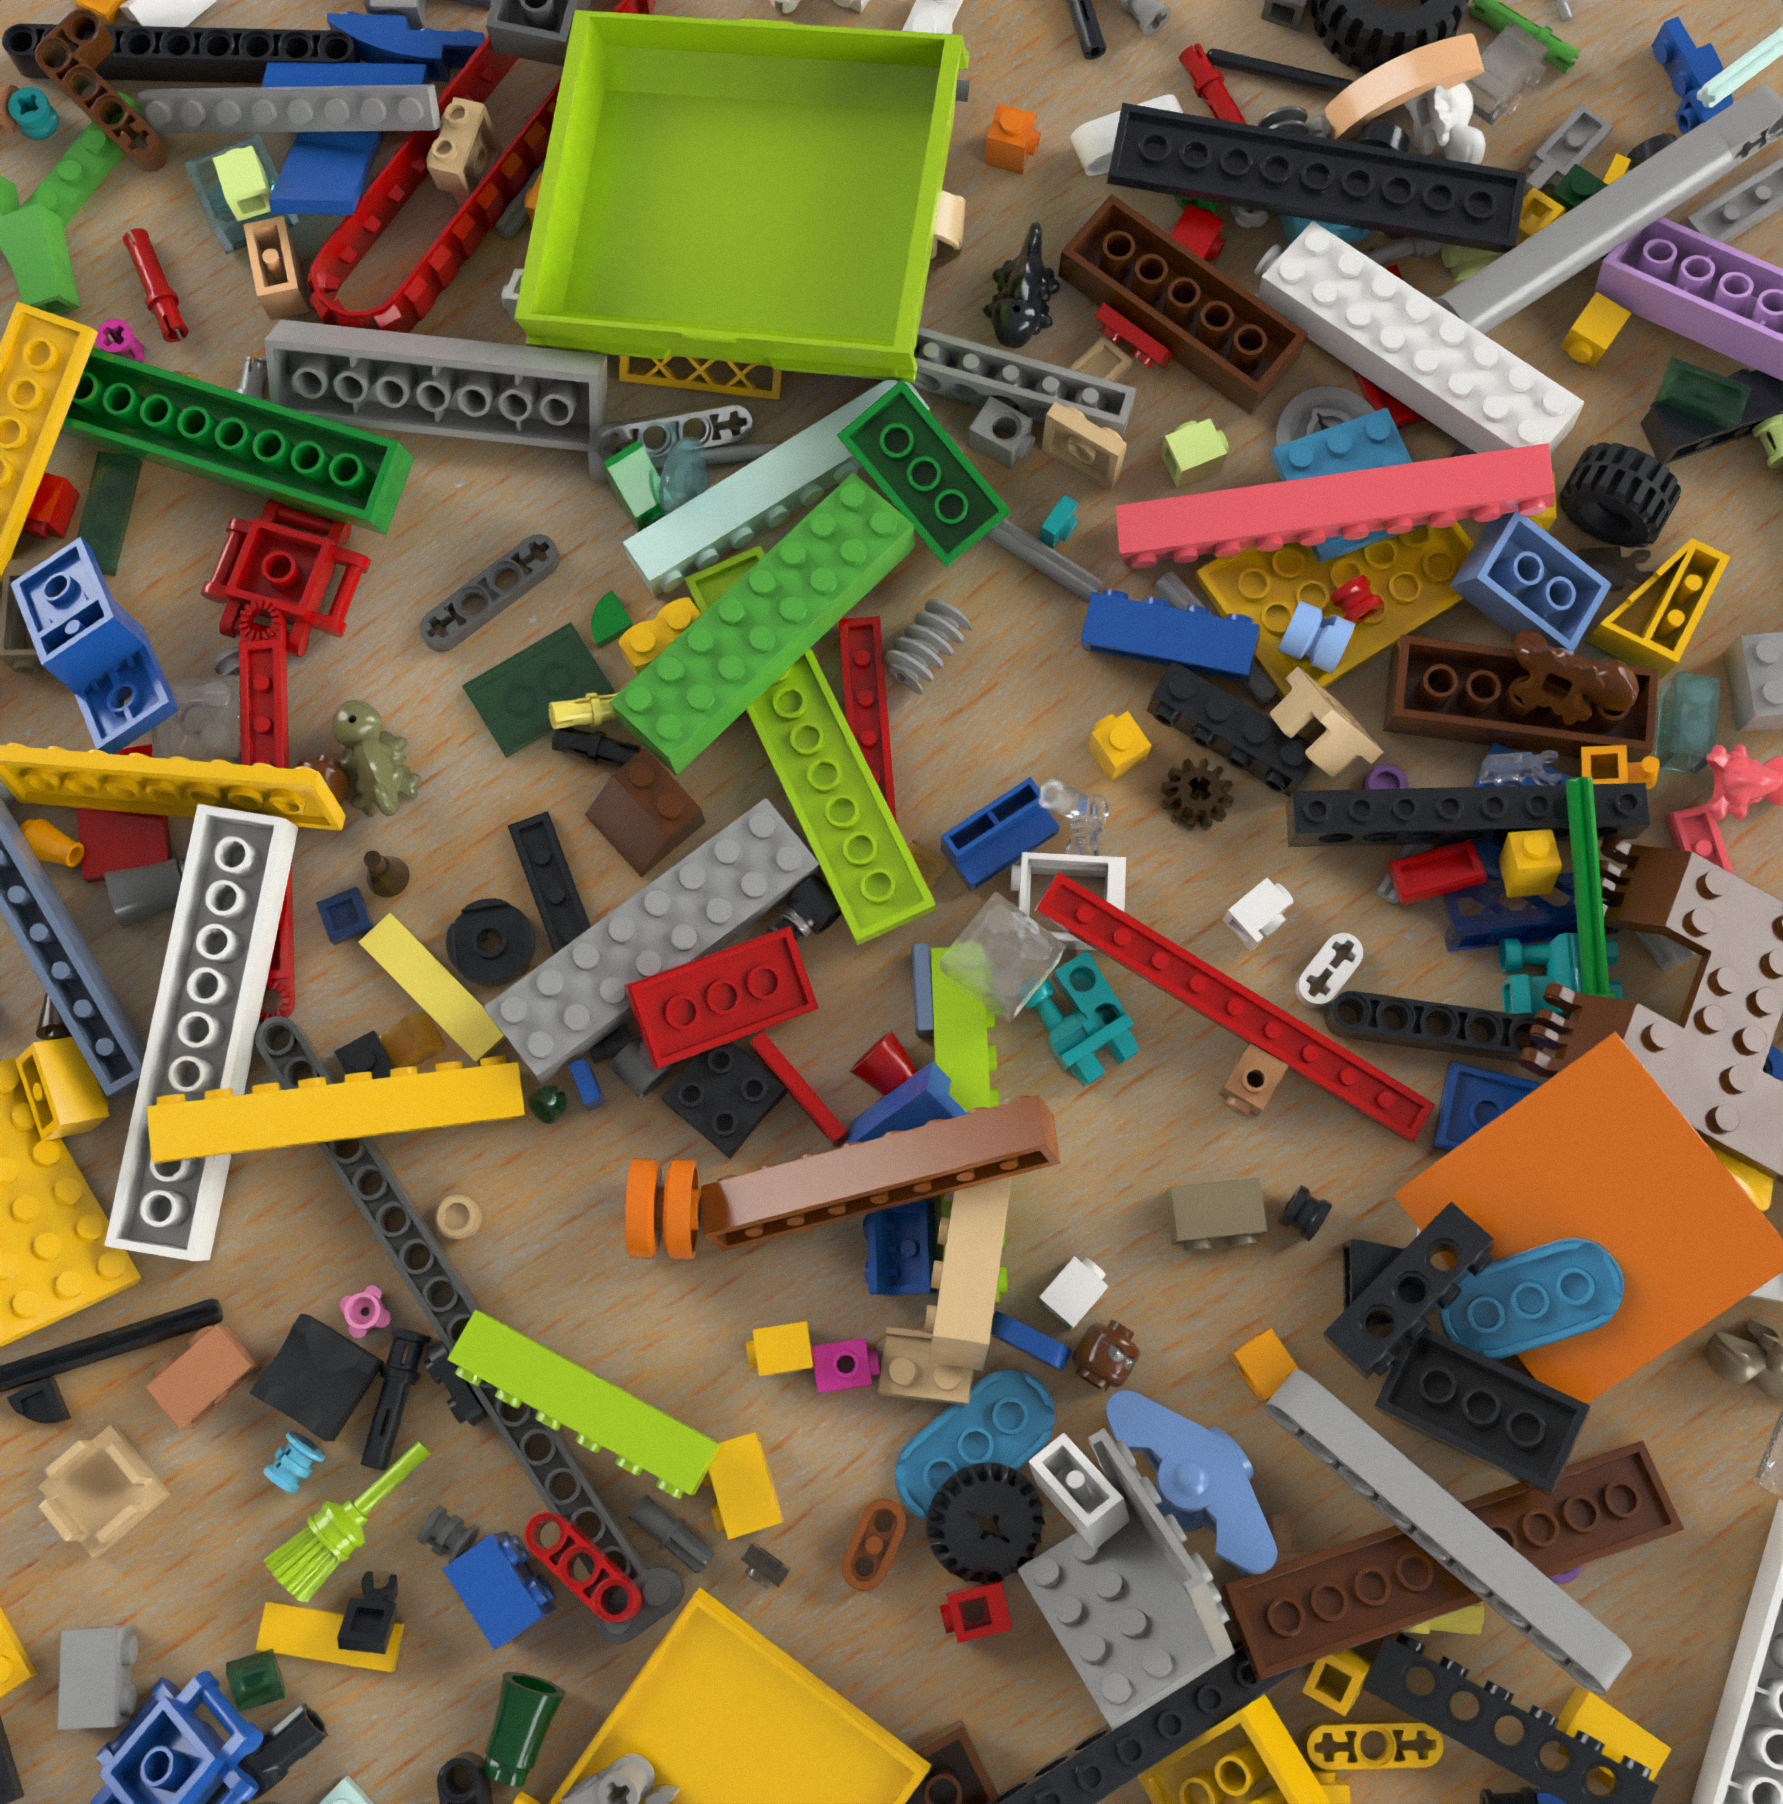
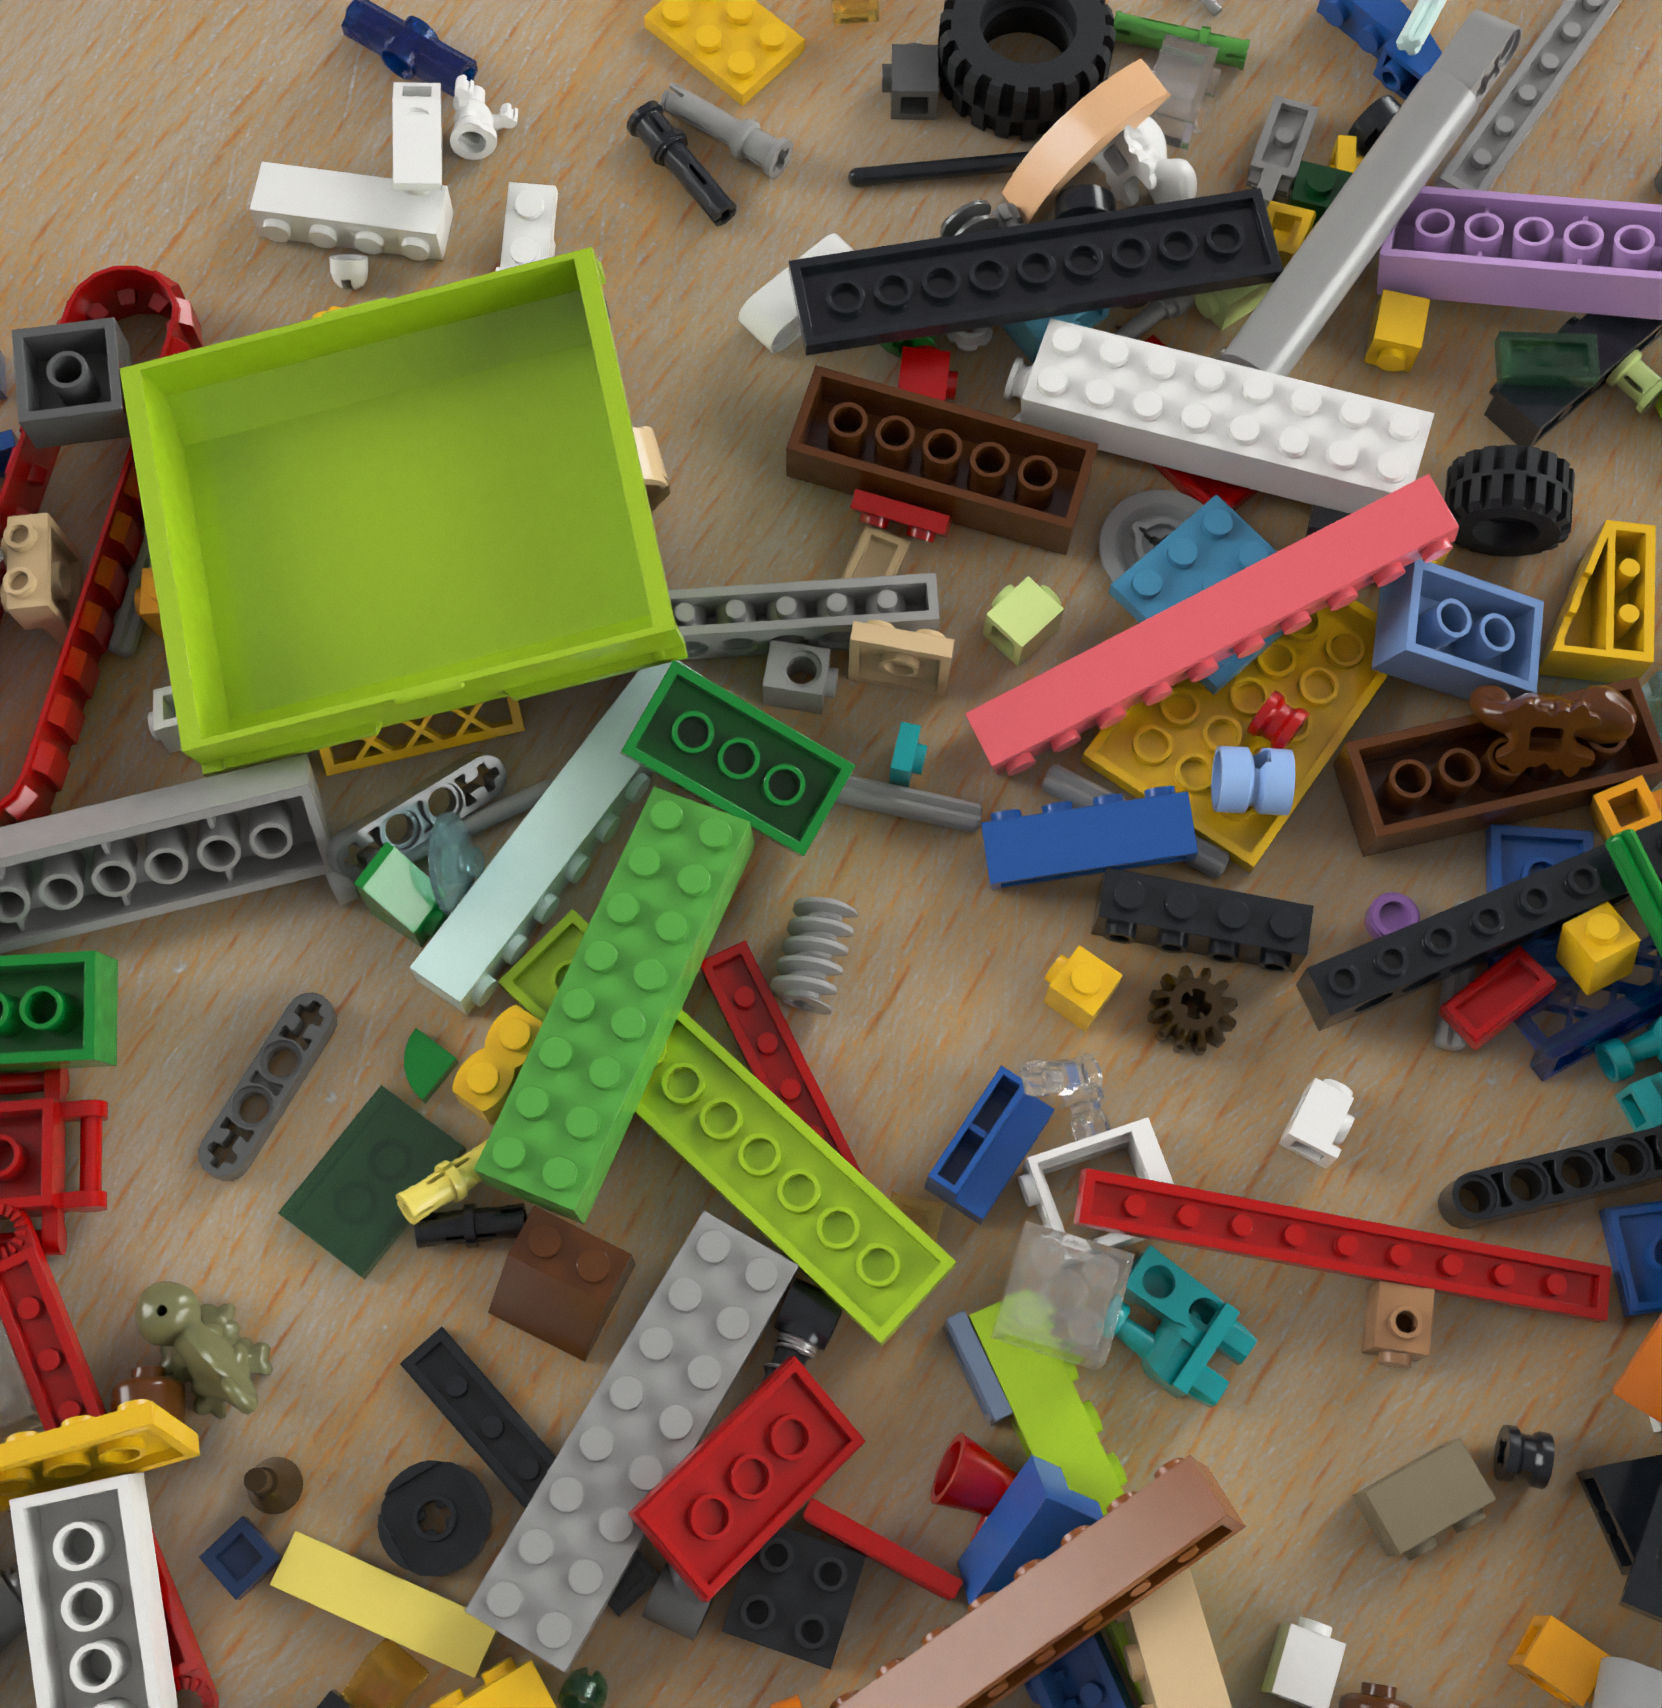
camera: 25 degrees left, 5 degrees down
(587, 1084) = (623, 1650): blue tile -> none
(1011, 138) = (674, 342): orange brick -> none
(1023, 292) = (755, 505): black animal -> none
(1210, 85) = (869, 210): red pin -> none
(1312, 704) = (1333, 886): tan panel -> none
(1321, 964) = (1436, 1159): white beam -> none
(1513, 768) = (1527, 849): clear plate -> none
(1614, 567) = (1531, 580): clear smoke plate -> none

